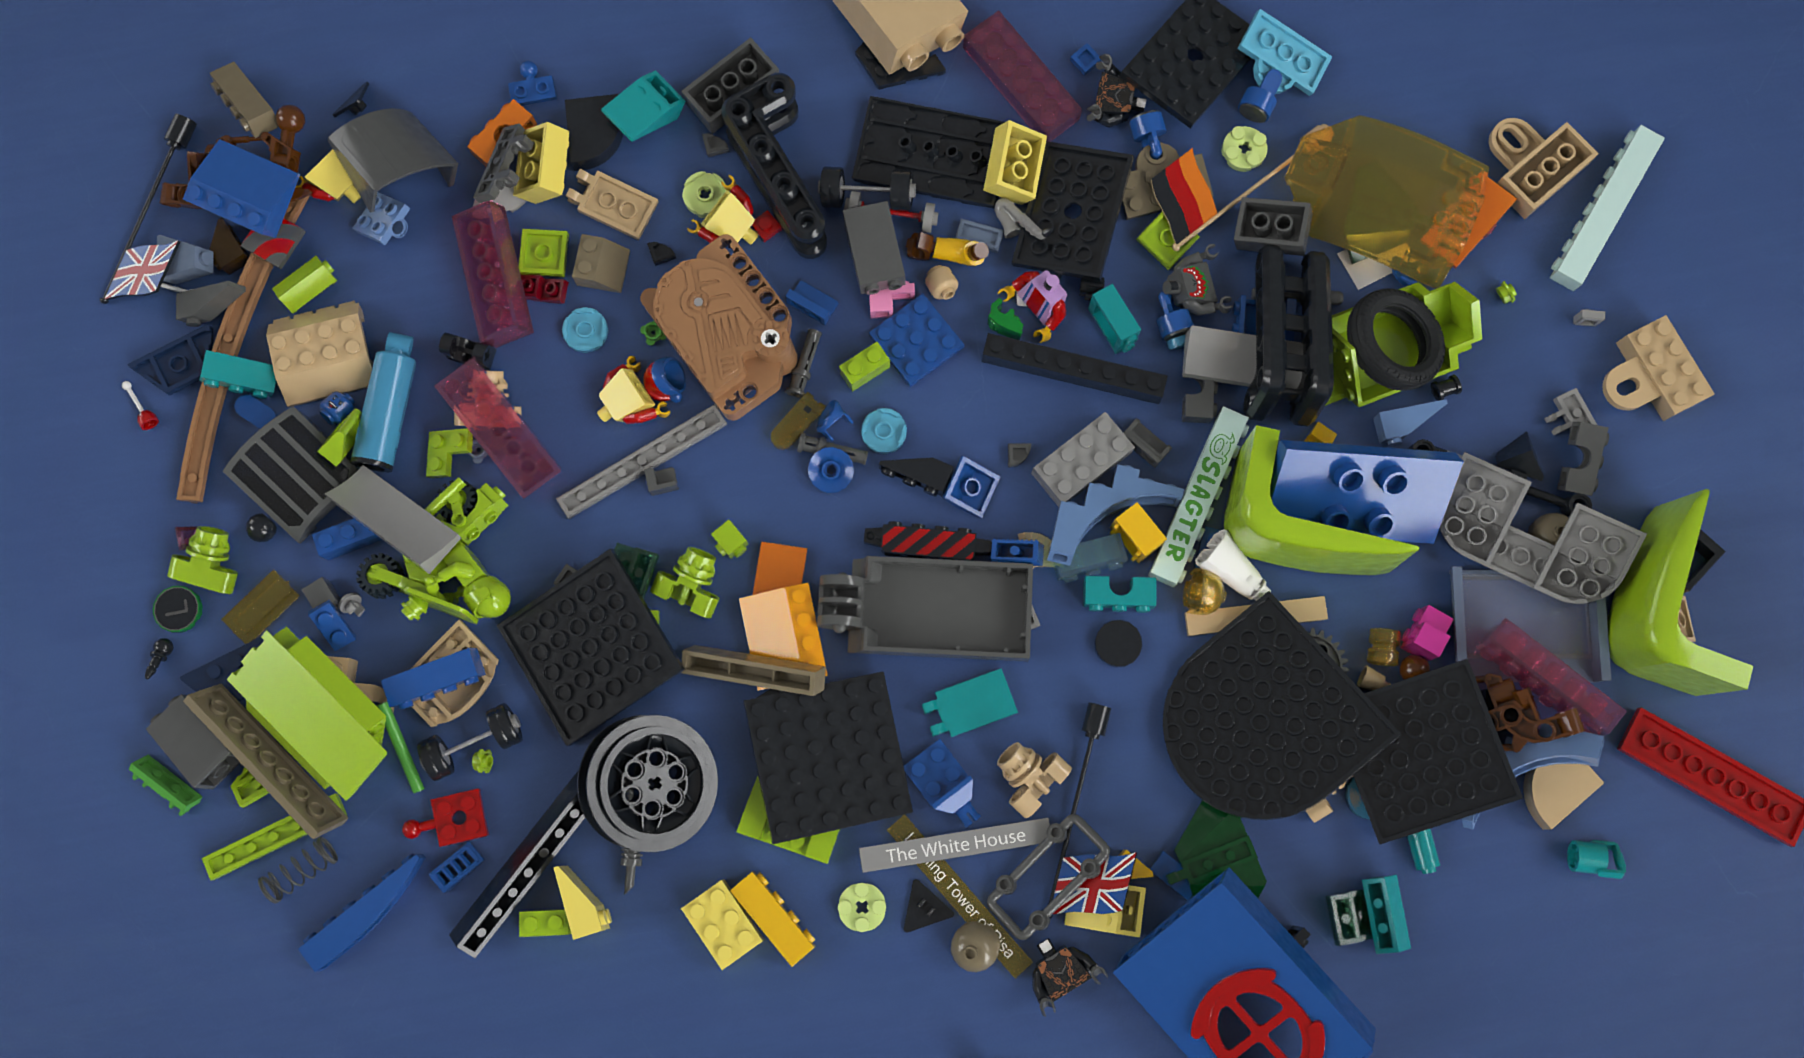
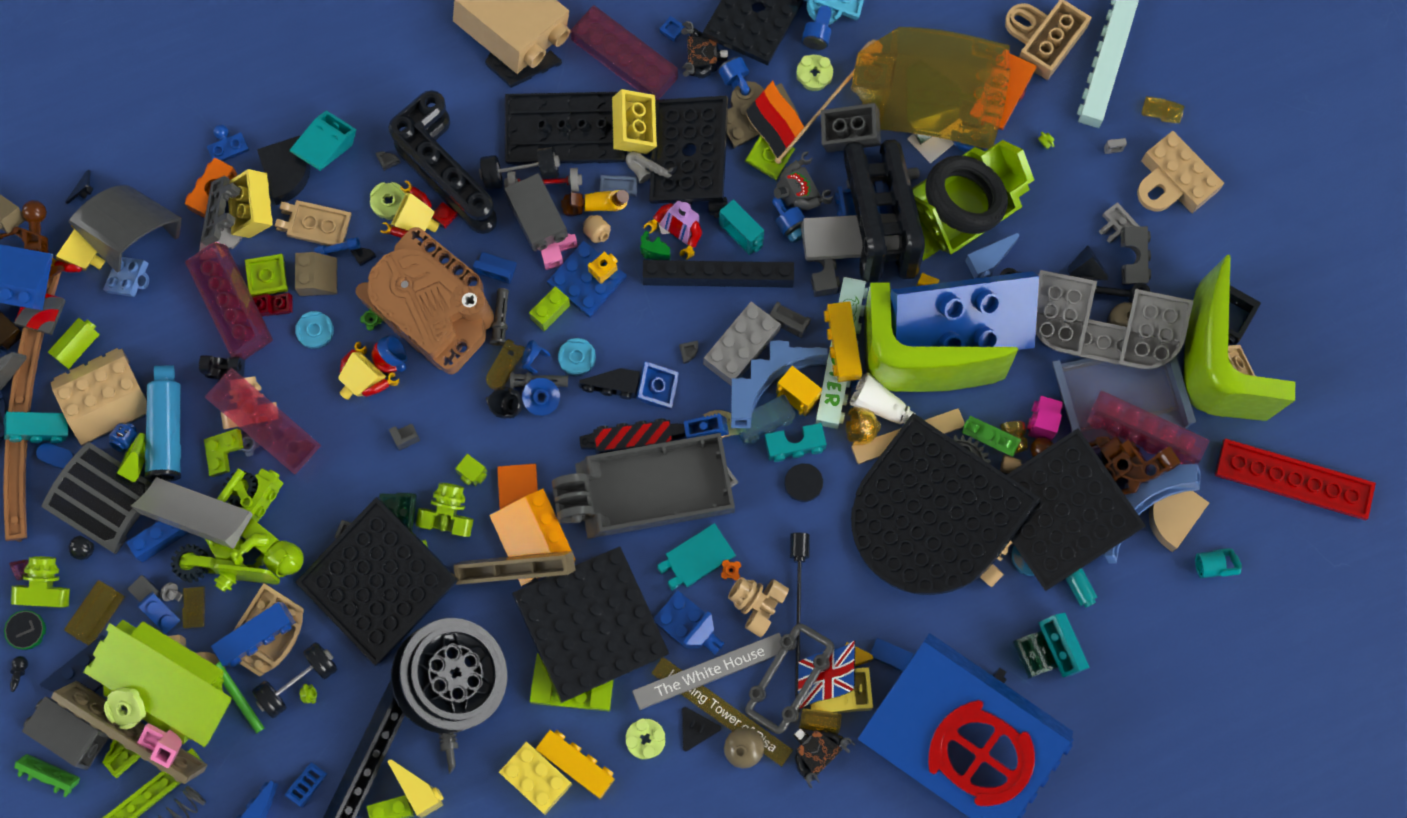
camera: 15 degrees left, 5 degrees down
(275, 733) = (134, 705): none -> yellowish green plate
(299, 786) = (163, 744): none -> bright pink brick
(375, 627) = (194, 607): none -> clear yellow slope
(443, 811) = (285, 742): red plate -> none
(648, 456) = (379, 429): light grey tile -> none
(649, 237) = (351, 244): none -> blue bar
(727, 77) = (390, 99): dark grey brick -> none
(787, 468) = (505, 402): none -> black hair
(935, 337) = (600, 272): none -> yellow brick
(1004, 723) = (726, 573): none -> orange plate
(1073, 935) = (820, 720): none -> clear yellow slope
(1205, 486) = (844, 342): none -> yellow brick
(1211, 846) = (913, 620): dark green panel -> none
(1357, 640) = (991, 436): none -> bright green plate
(1446, 387) = (1016, 224): black bush -> none
(1659, 285) = (1163, 109): none -> clear yellow slope

